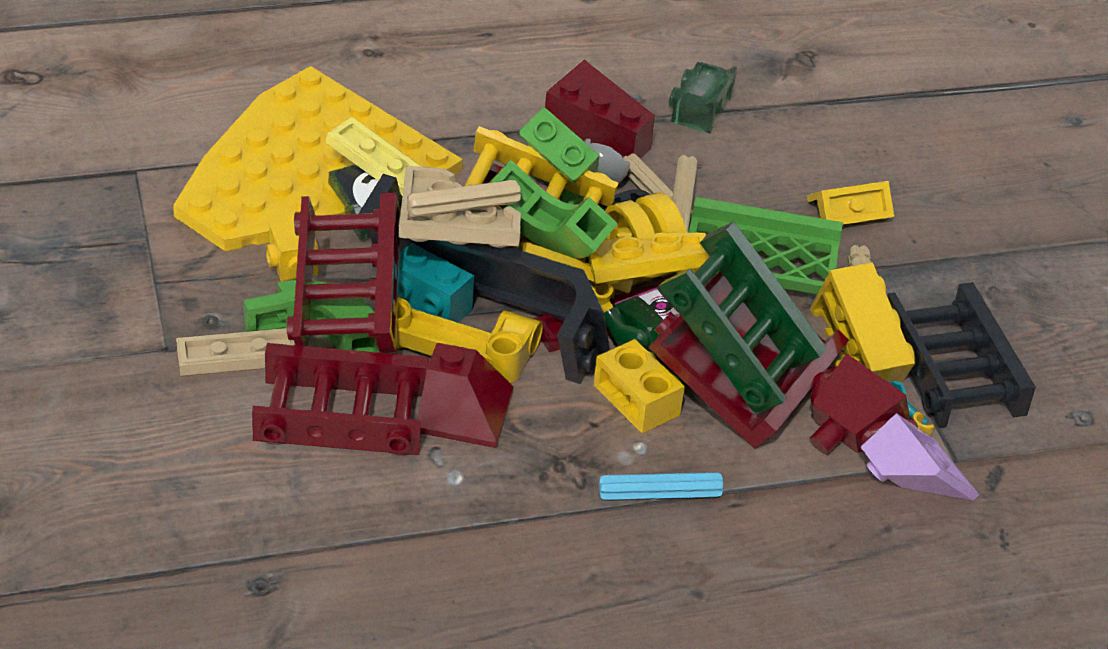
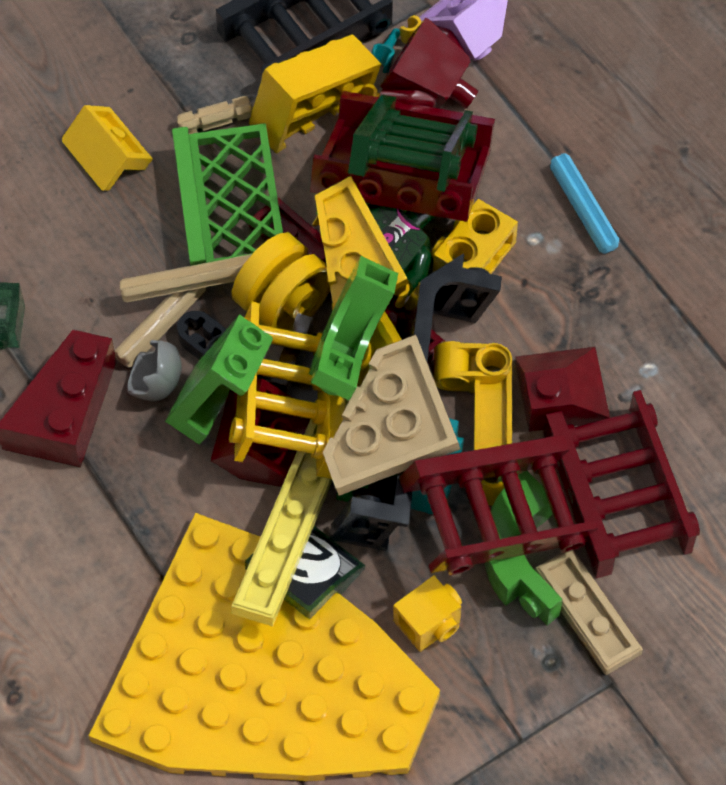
camera: 105 degrees left, 20 degrees up
(463, 198) = (393, 397): tan axle -> none

